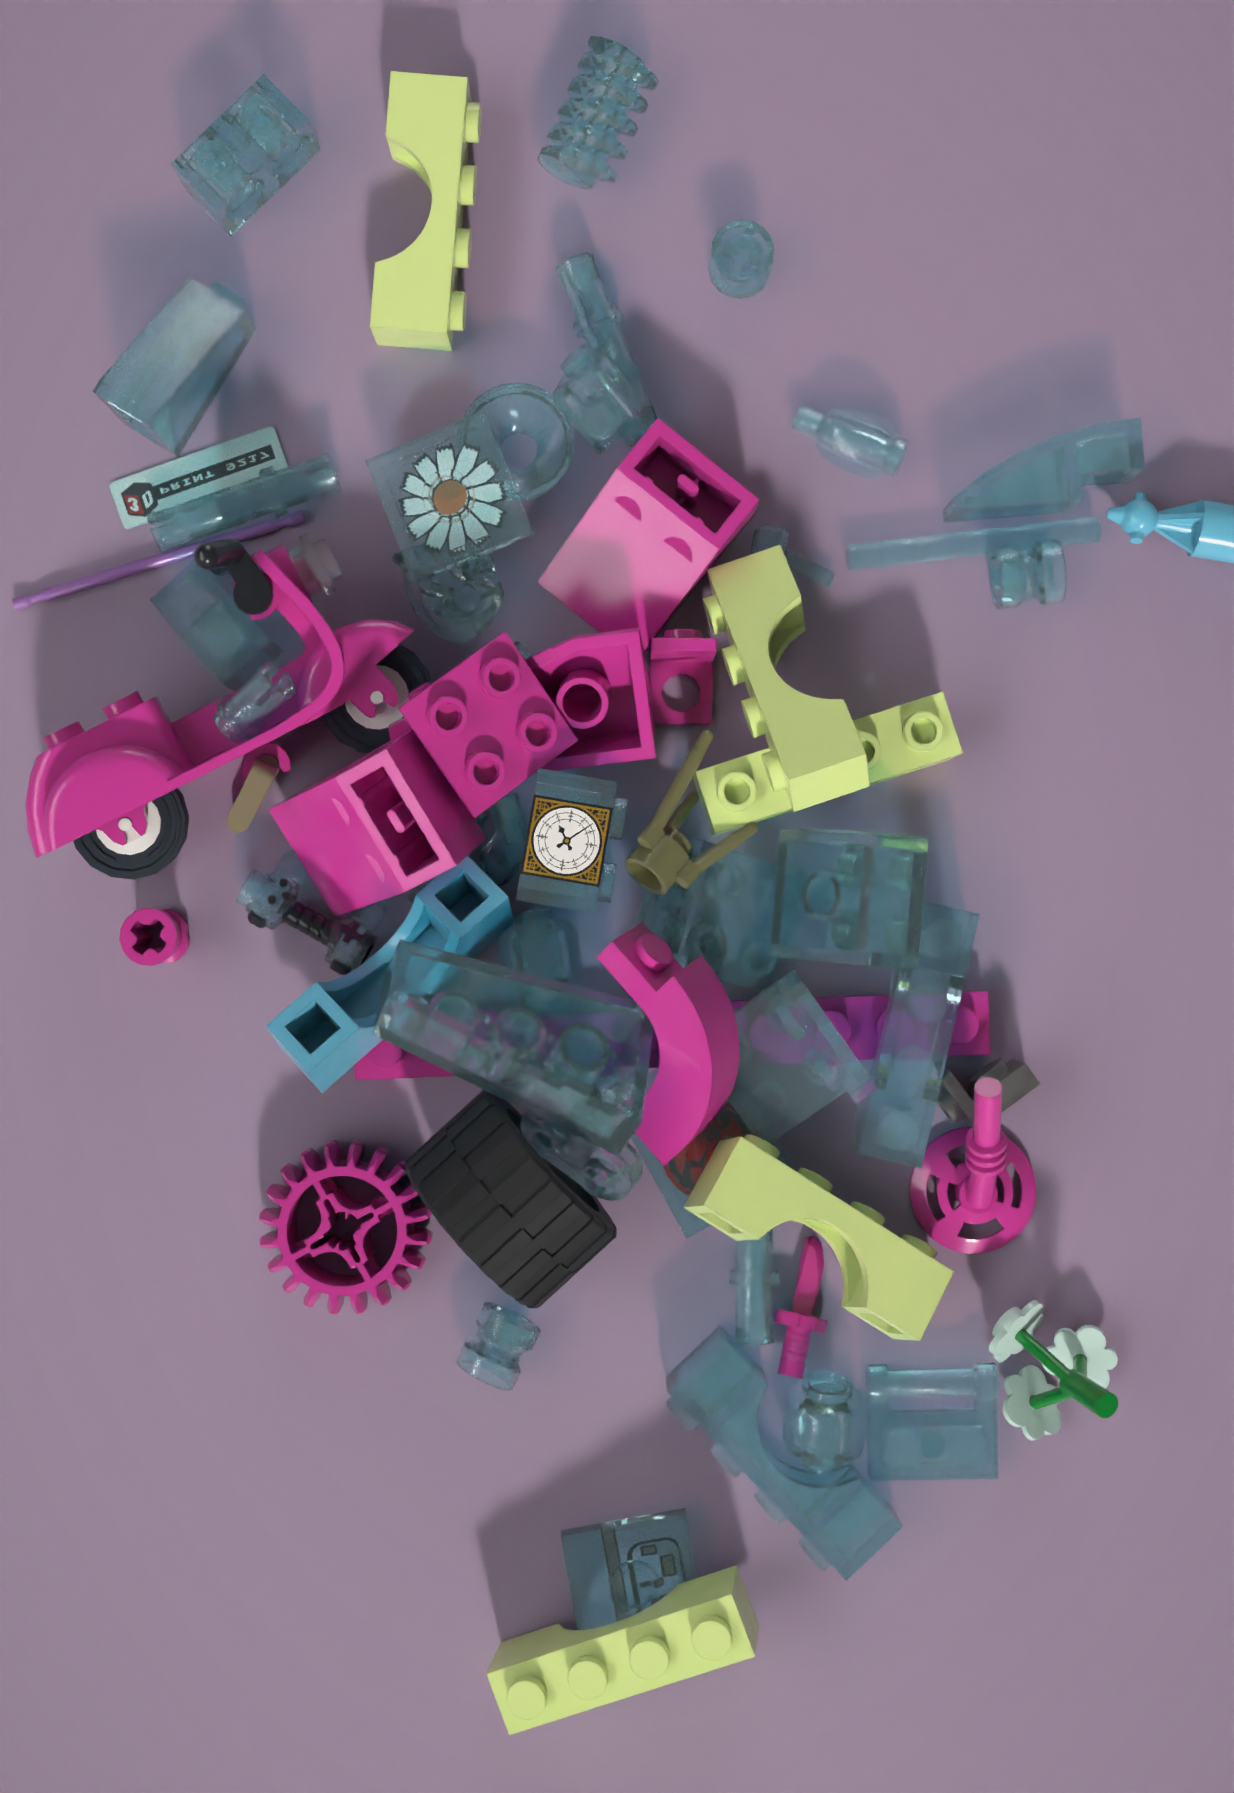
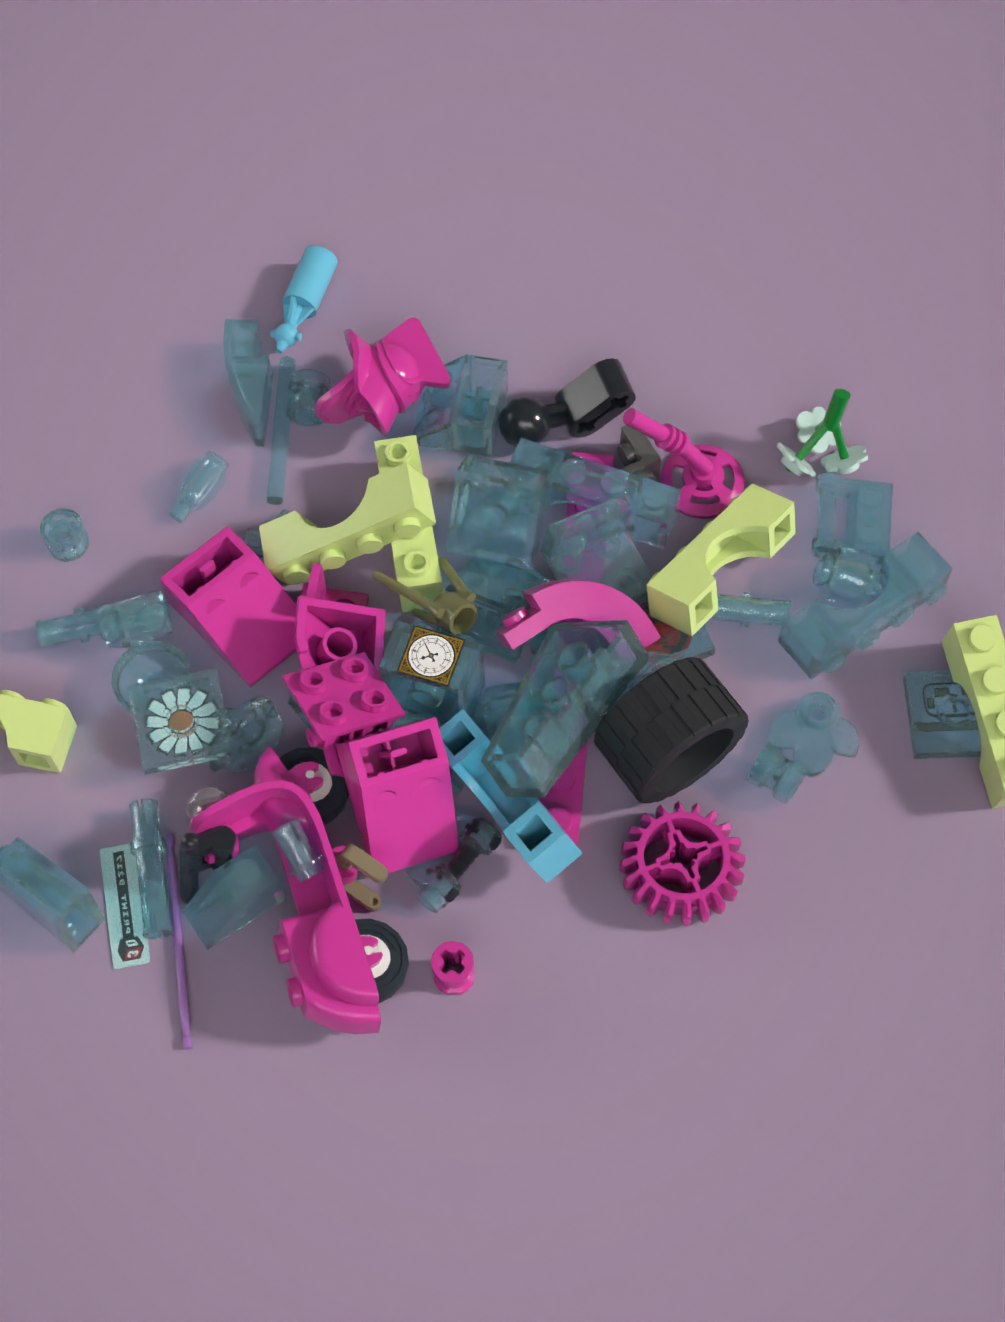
camera: 75 degrees left, 25 degrees down
(563, 1388) = (813, 739): none -> clear light blue plate
(800, 1319) = (777, 588): dark pink piece -> none
(1040, 811) = (468, 411): none -> clear light blue slope
(1064, 992) = (581, 405): none -> black beam
(1066, 692) = (384, 377): none -> dark pink helmet

